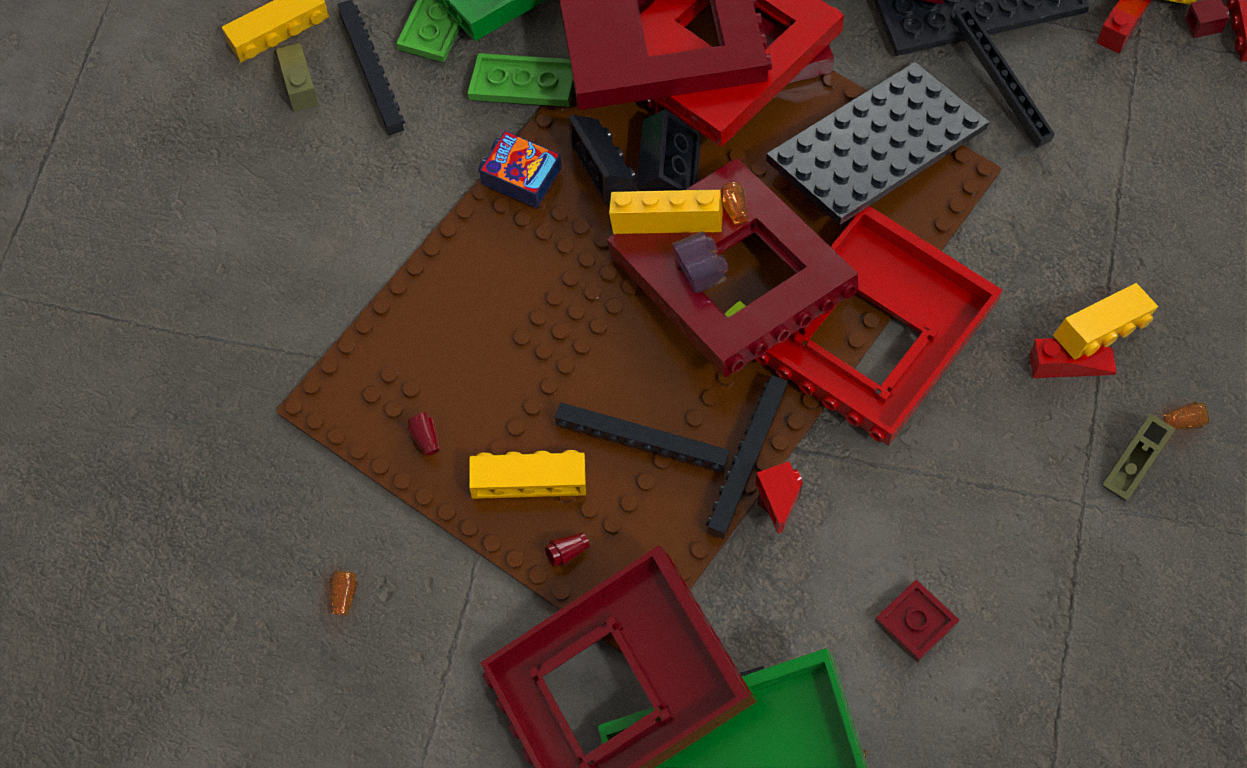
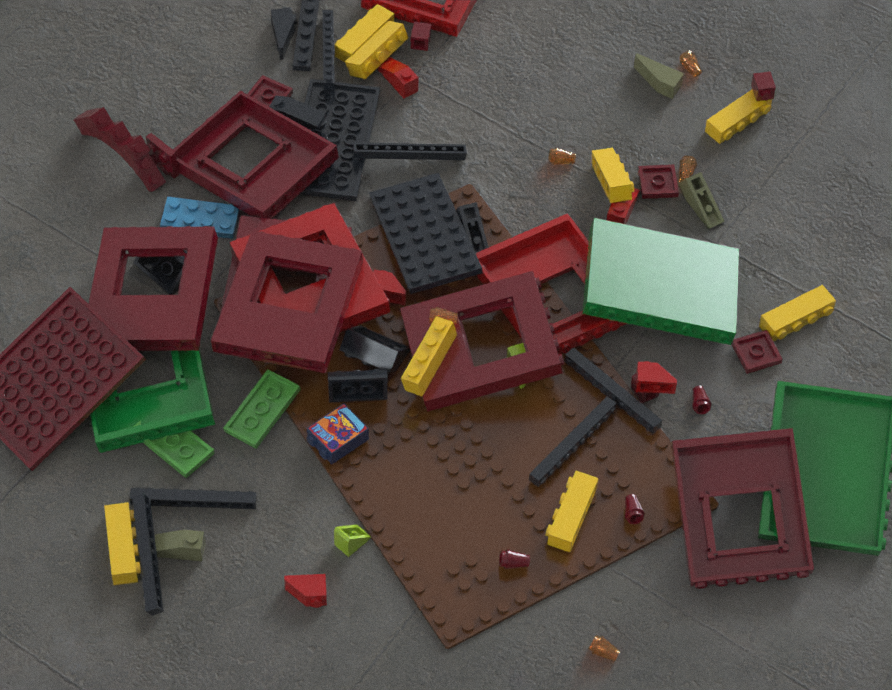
camera: 70 degrees left, 10 degrees down
(269, 51) = (147, 554): none -> black piece
(291, 231) = (307, 589): none -> red slope
(383, 244) = (350, 538): none -> lime slope
(700, 261) = (480, 349): clear purple brick -> none
(769, 131) = (391, 286): none -> red slope
(793, 574) = (701, 402): none -> dark red cone
(916, 191) = (472, 223): none -> black slope
(953, 448) = (661, 281): none -> panel
(1013, 653) = (797, 313): none -> yellow brick
(1110, 254) = (559, 156): none -> clear orange cone
(1142, 388) = (658, 181): none -> dark red plate

